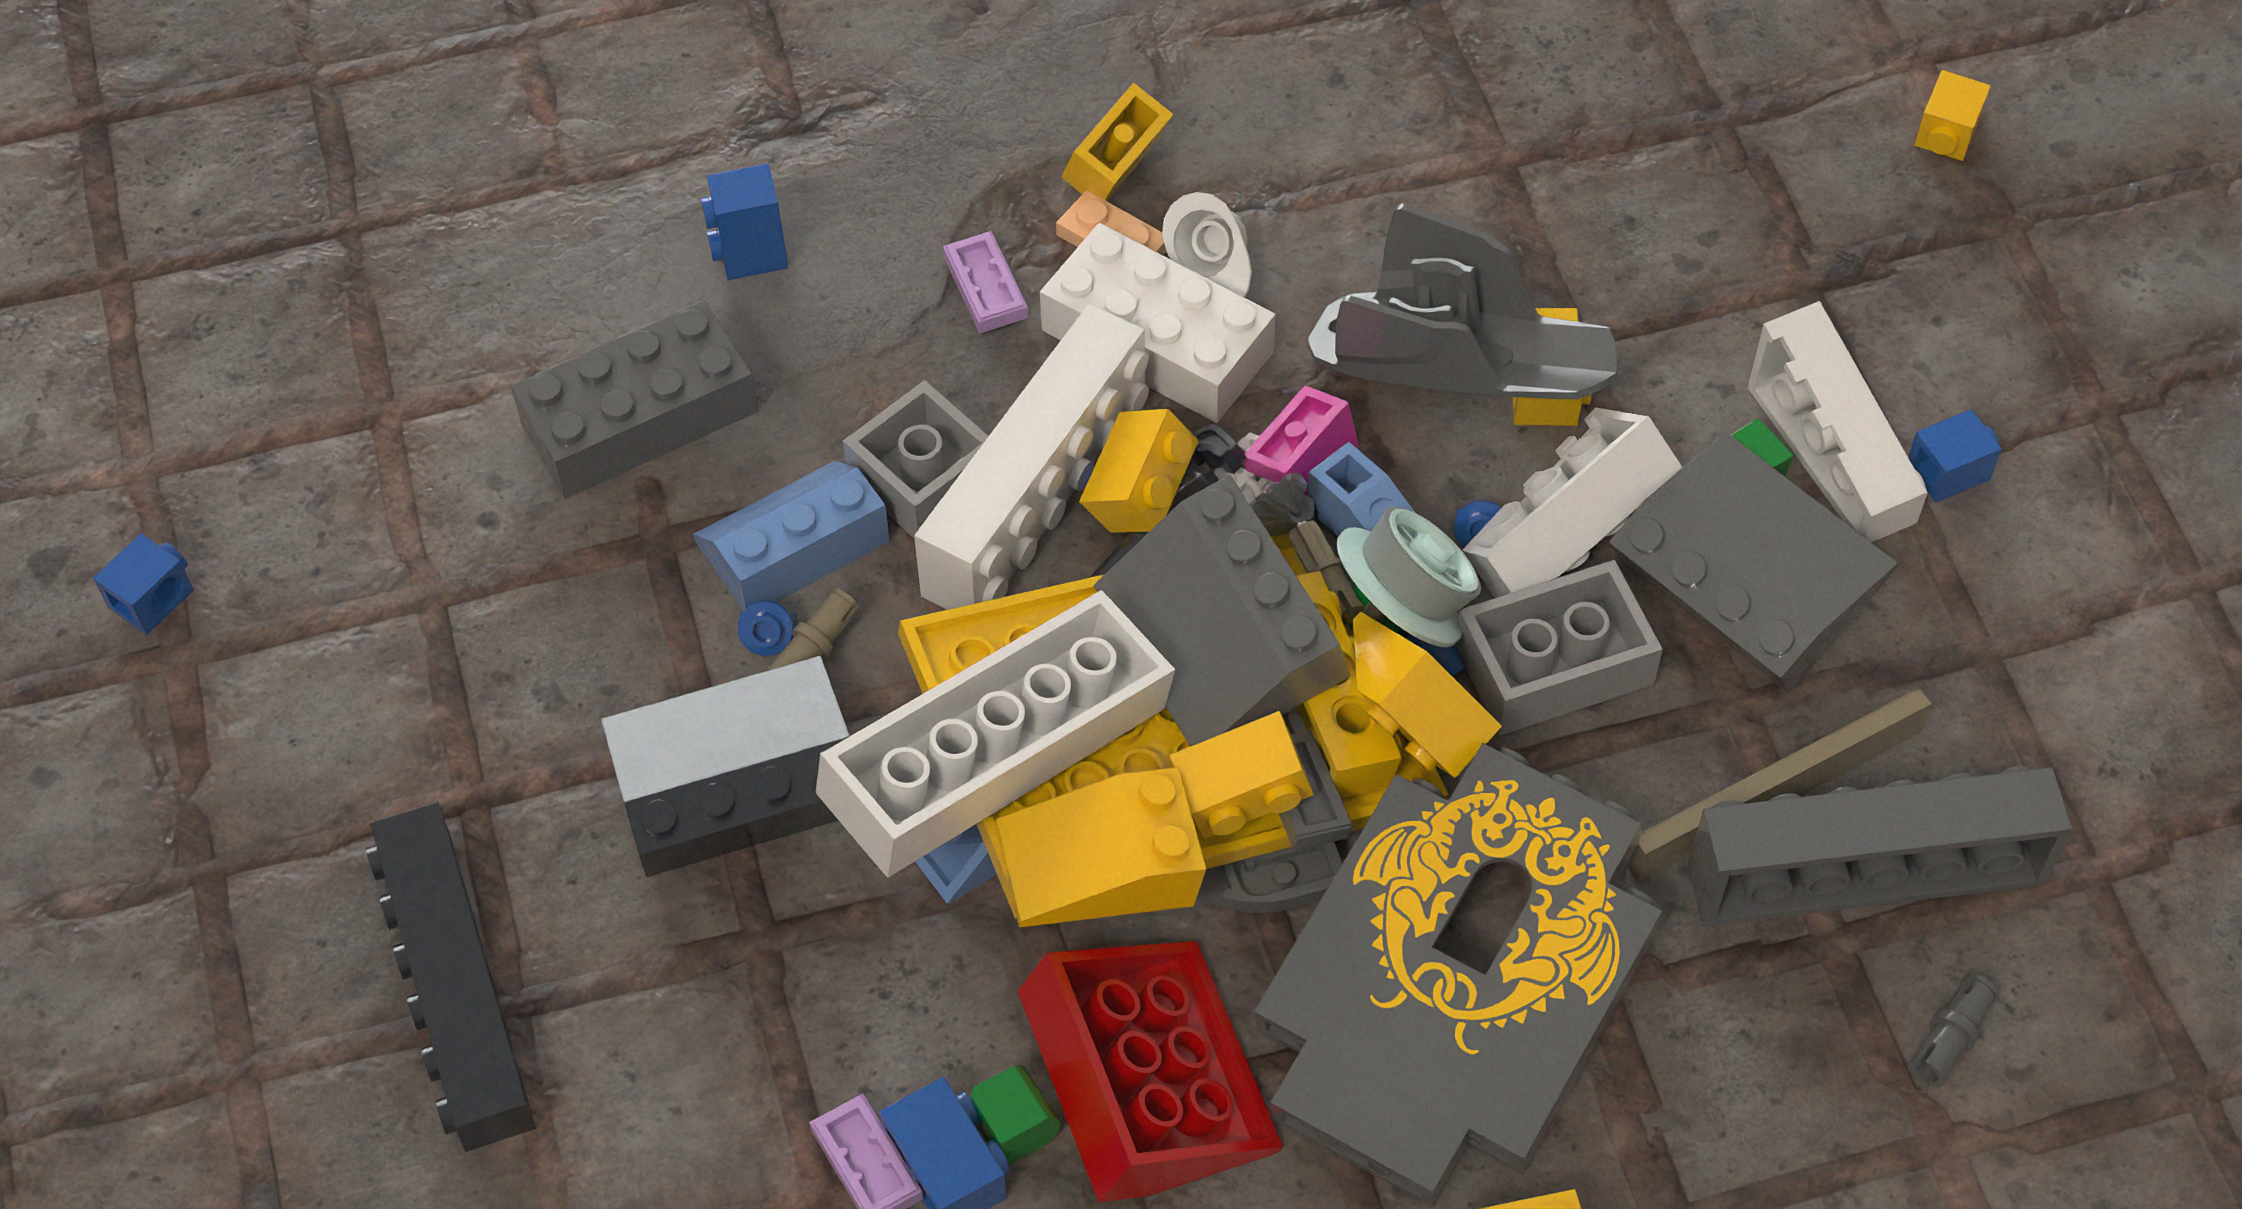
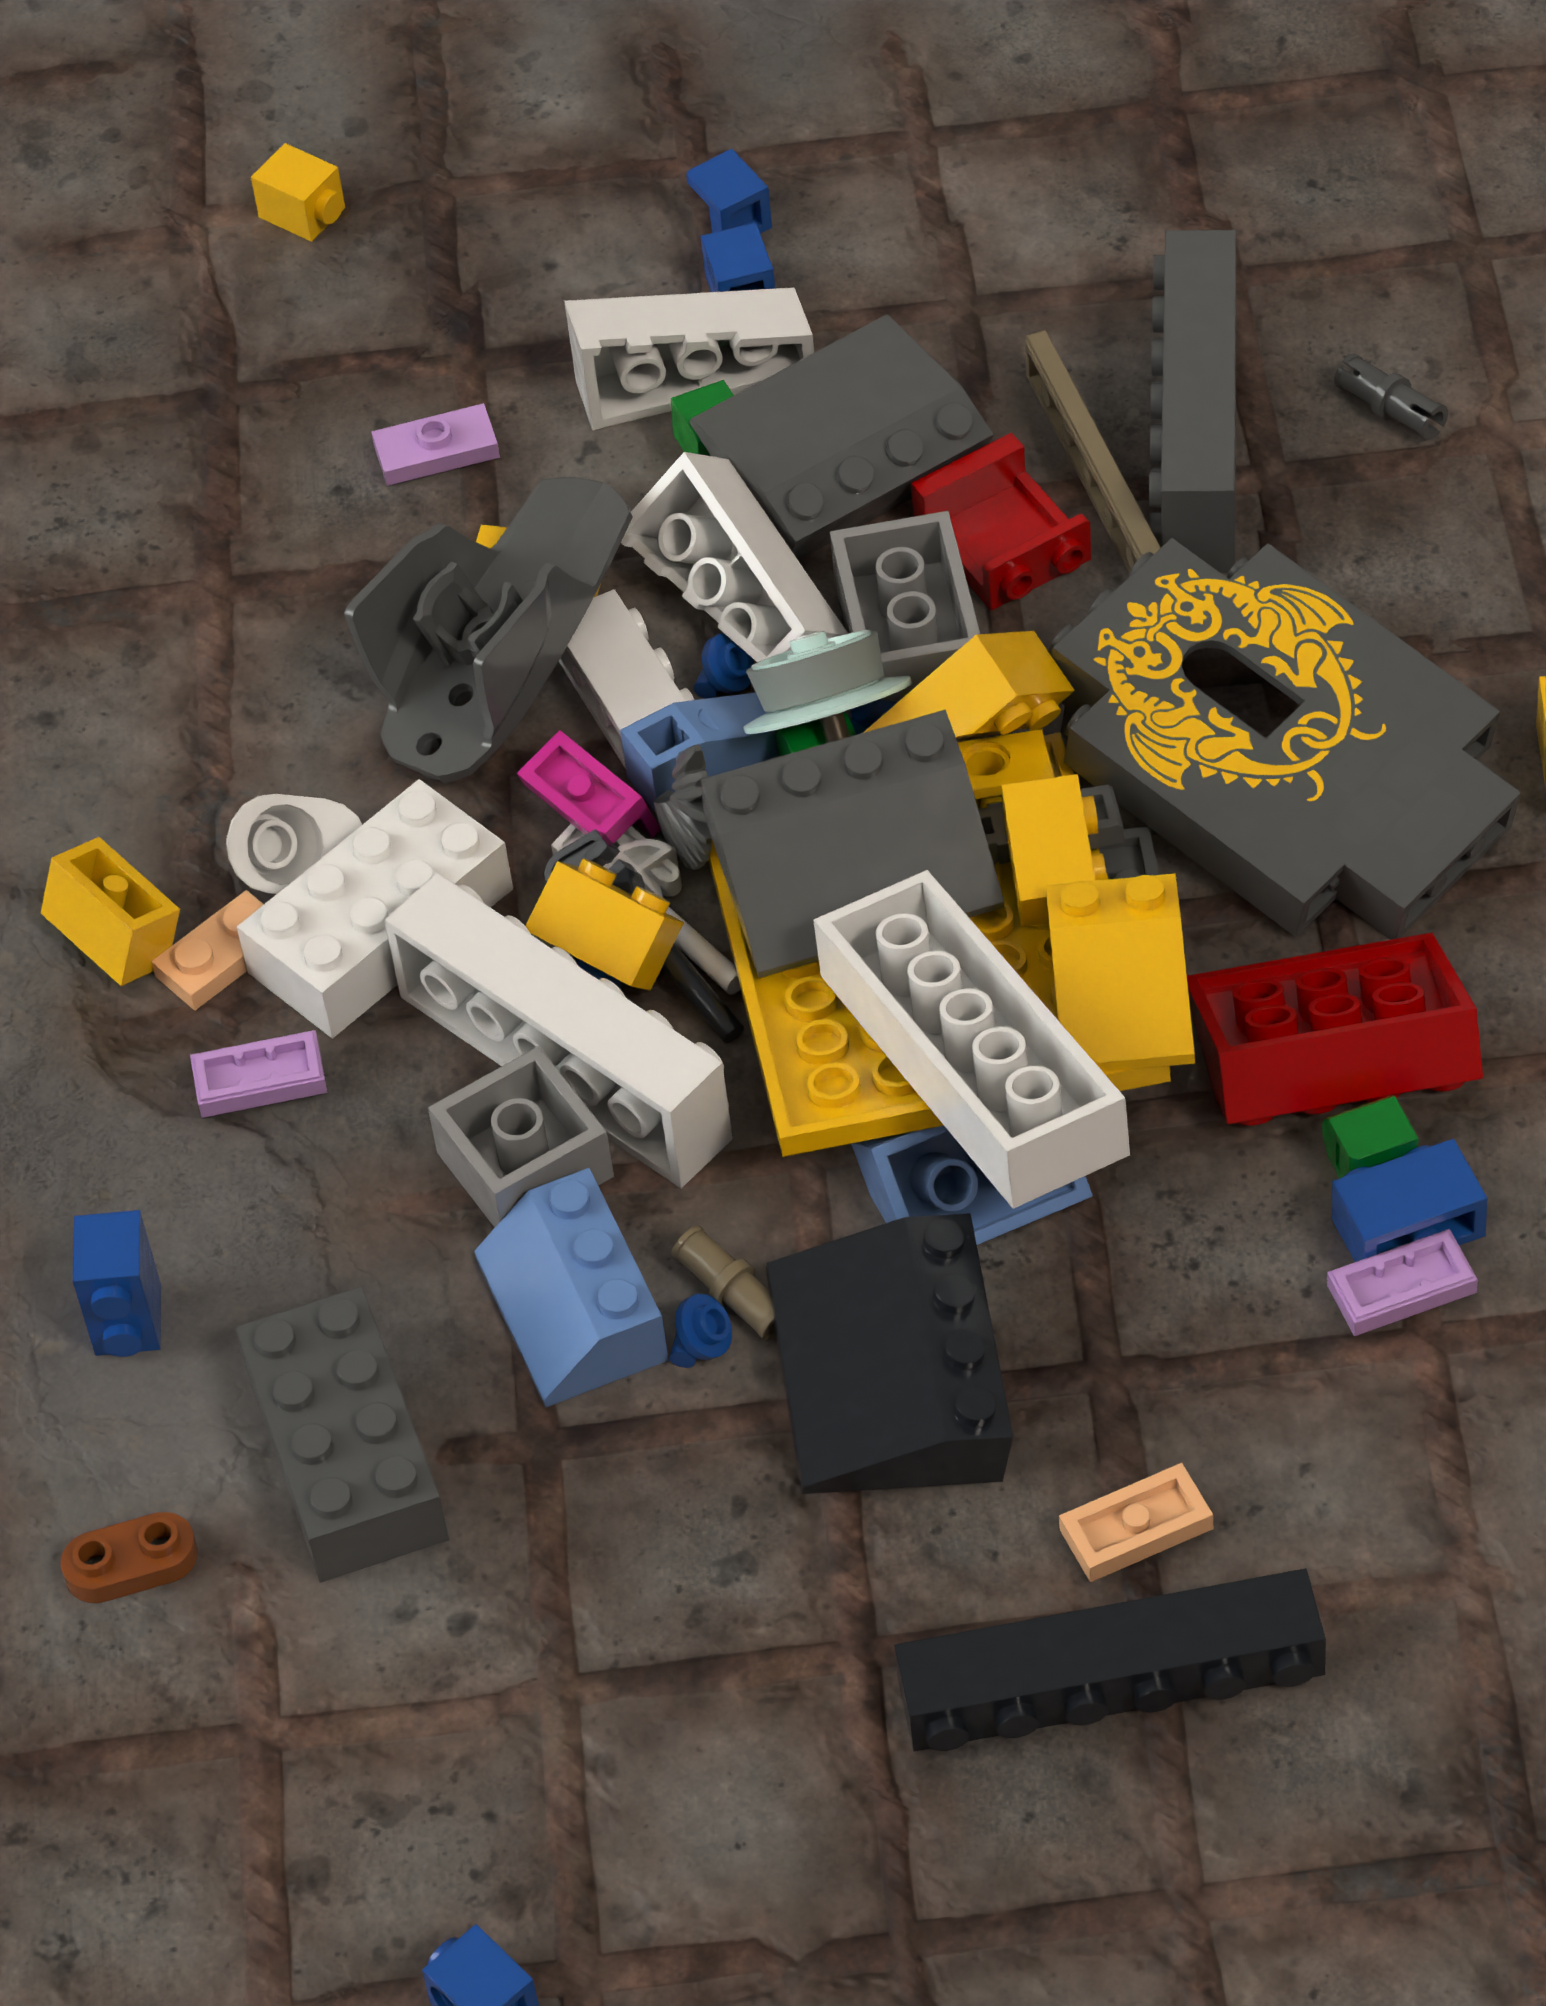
camera: 75 degrees left, 5 degrees down
(526, 293) = (129, 1557): none -> dark orange plate
(594, 977) = (1136, 1522): none -> light nougat plate
(1449, 447) = (618, 668): none -> white brick
(1692, 274) = (435, 444): none -> lavender plate
(1699, 715) = (1003, 522): none -> red panel
(2044, 432) = (731, 192): none -> blue panel

